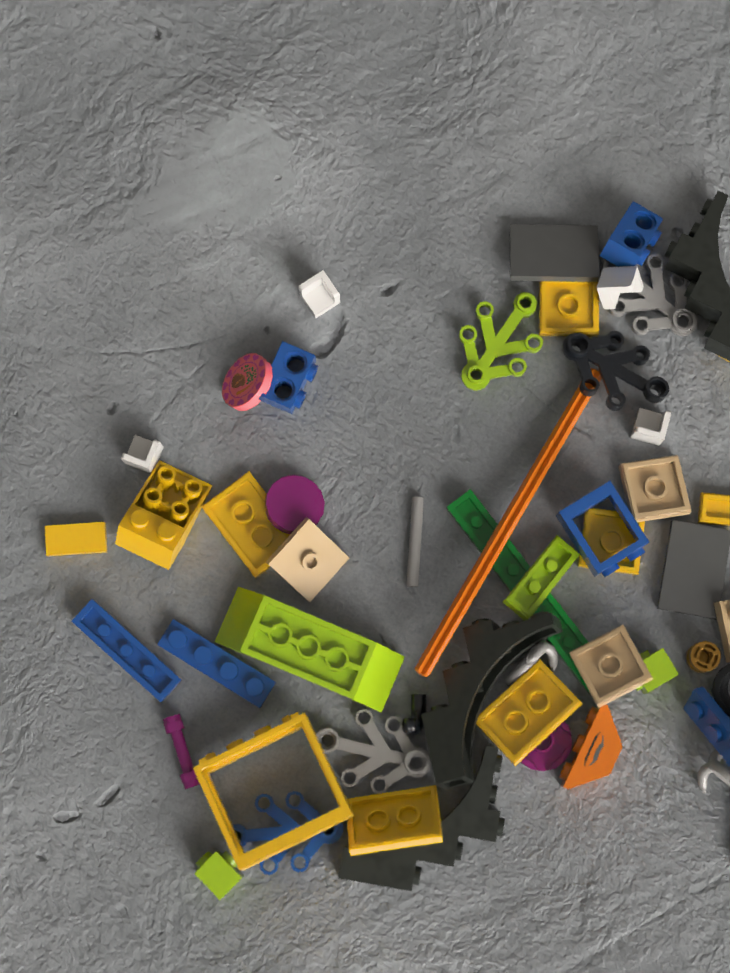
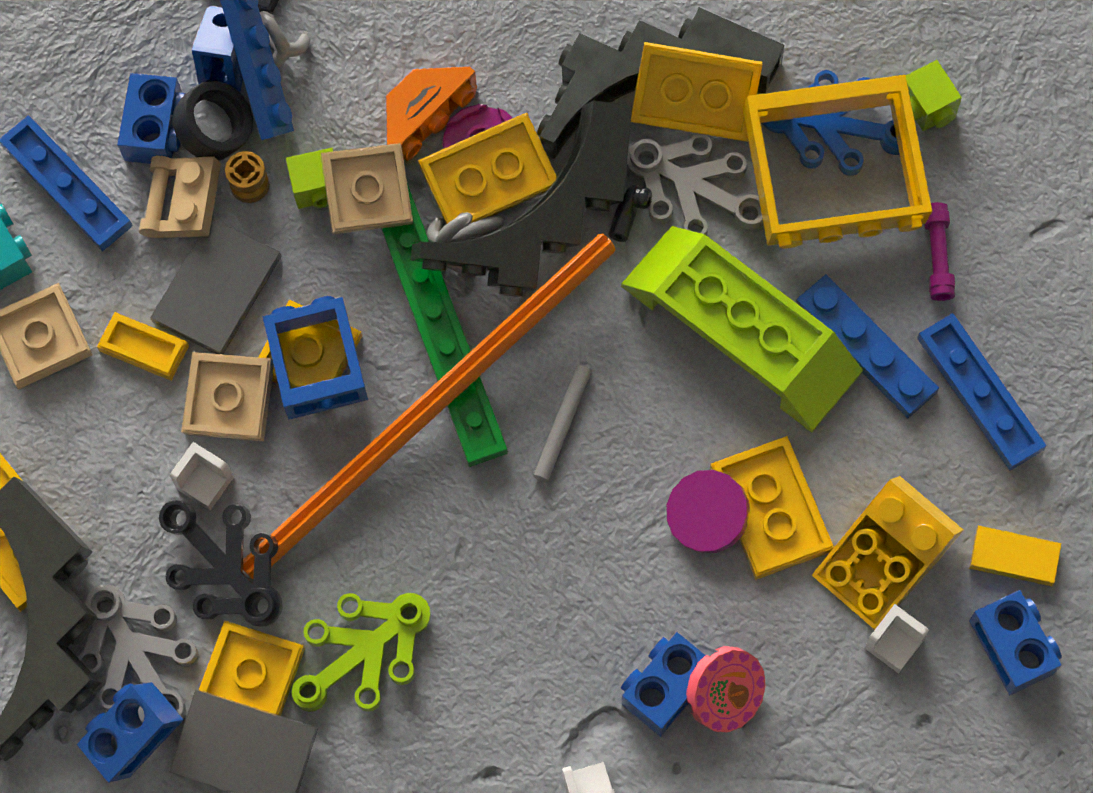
camera: 160 degrees left, 10 degrees down
(65, 471) = (1005, 645): none -> blue brick
(307, 559) = (711, 433): tan plate -> none
(541, 578) = (415, 322): lime tile -> none
(616, 281) = (173, 672): white panel -> none

